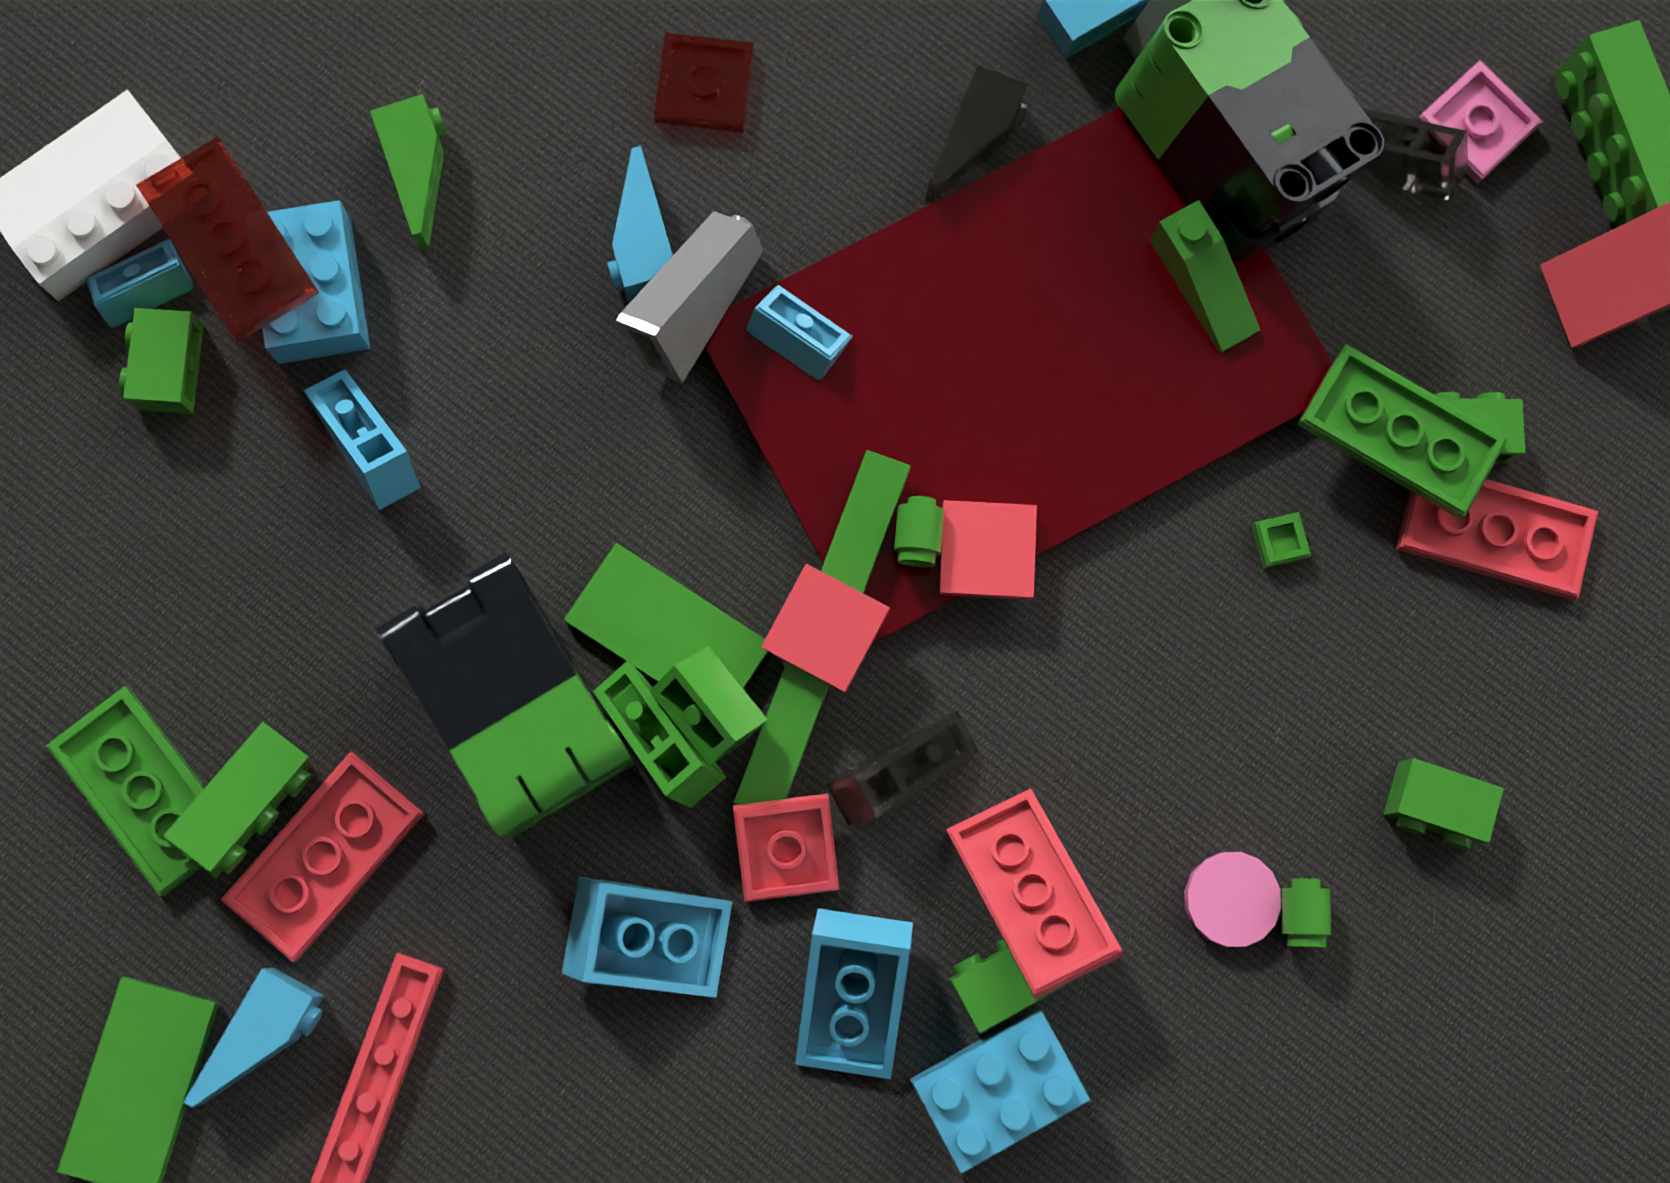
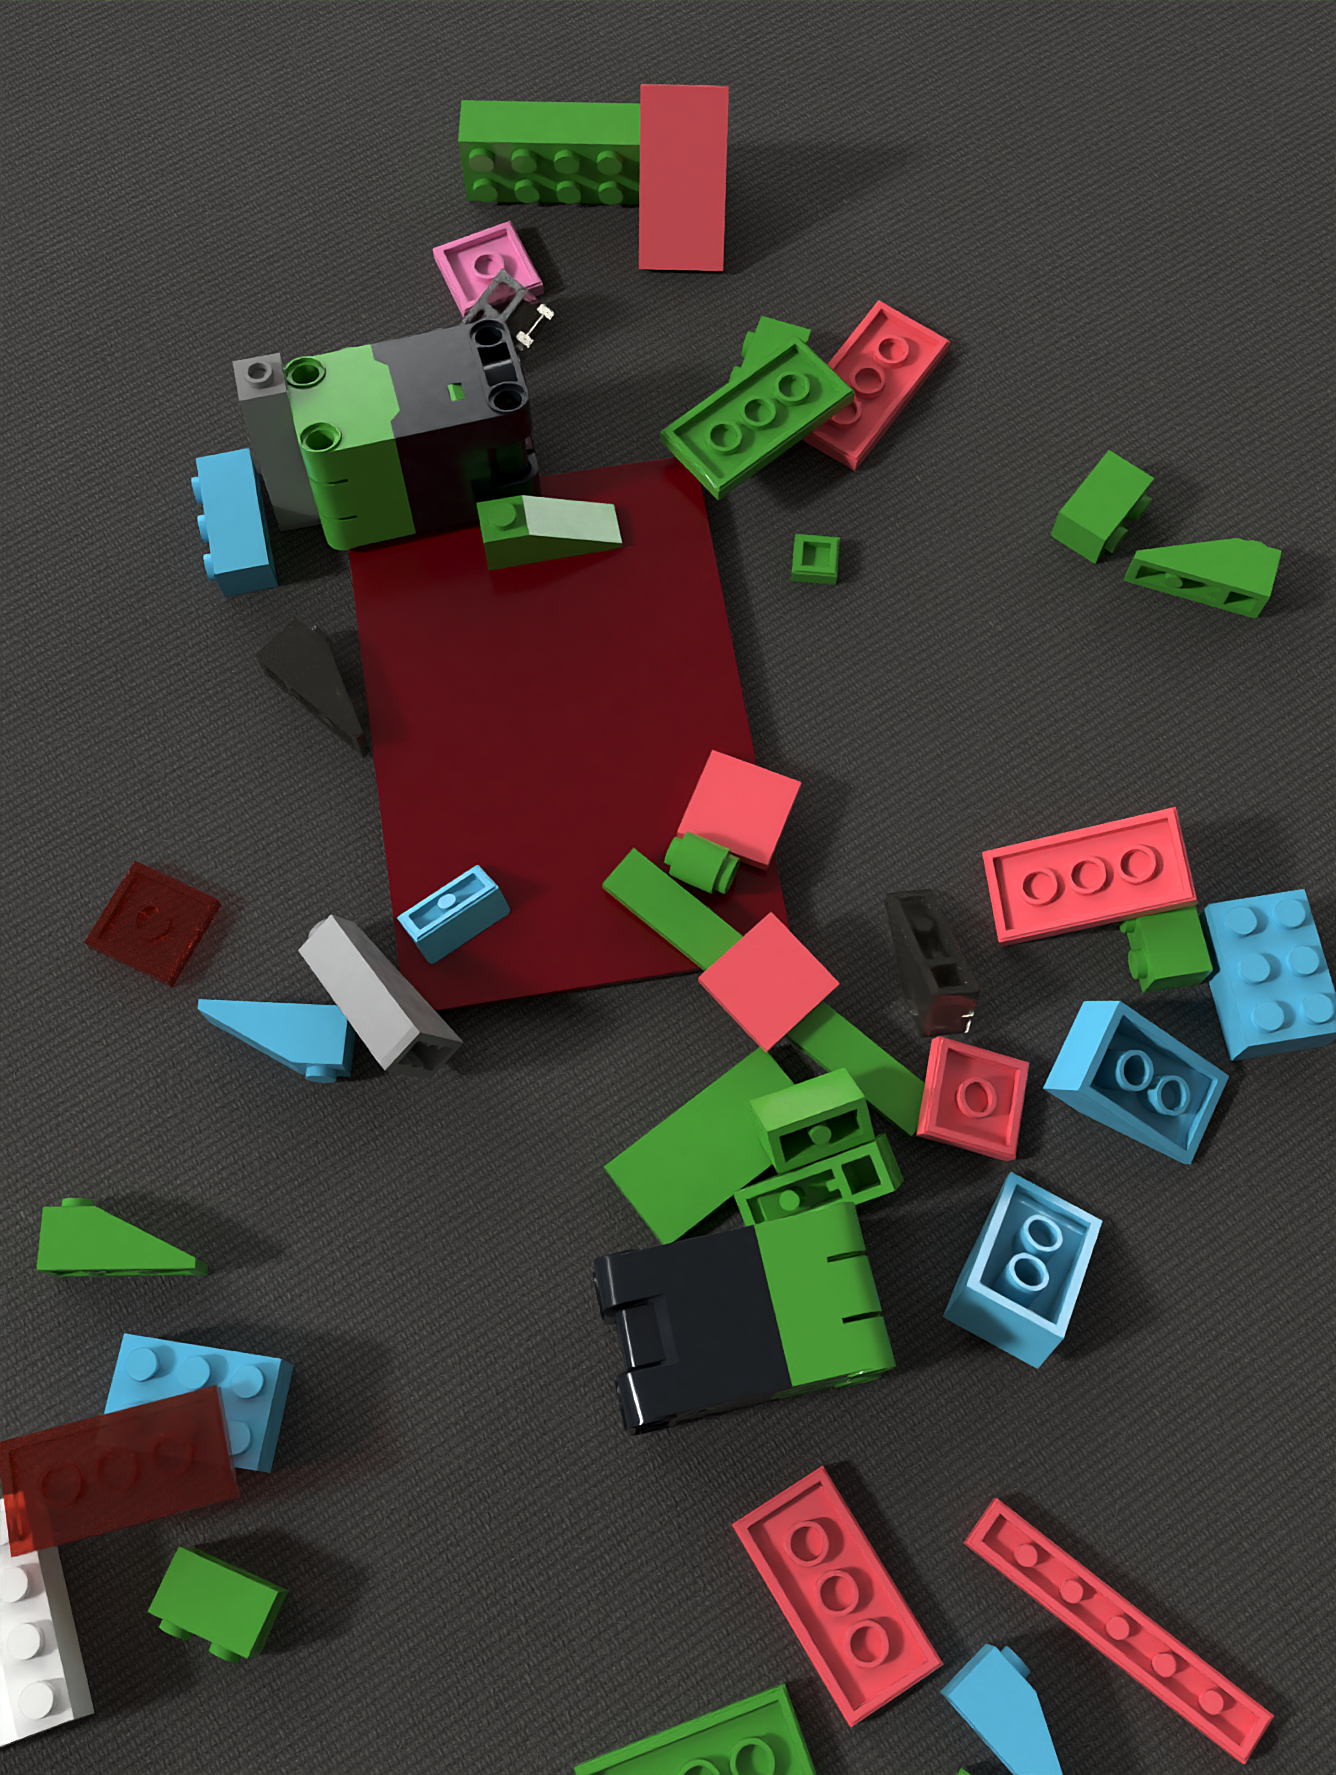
camera: 60 degrees left, 10 degrees down
(139, 282) = (114, 1606): medium azure slope -> none
(240, 801) = (754, 1665): bright green brick -> none
(363, 439) = (395, 1398): medium azure slope -> none
(1232, 899) = (1138, 712): bright pink tile -> none
(1306, 913) = (1172, 652): bright green brick -> none
(1412, 939) = (1217, 573): none -> bright green slope

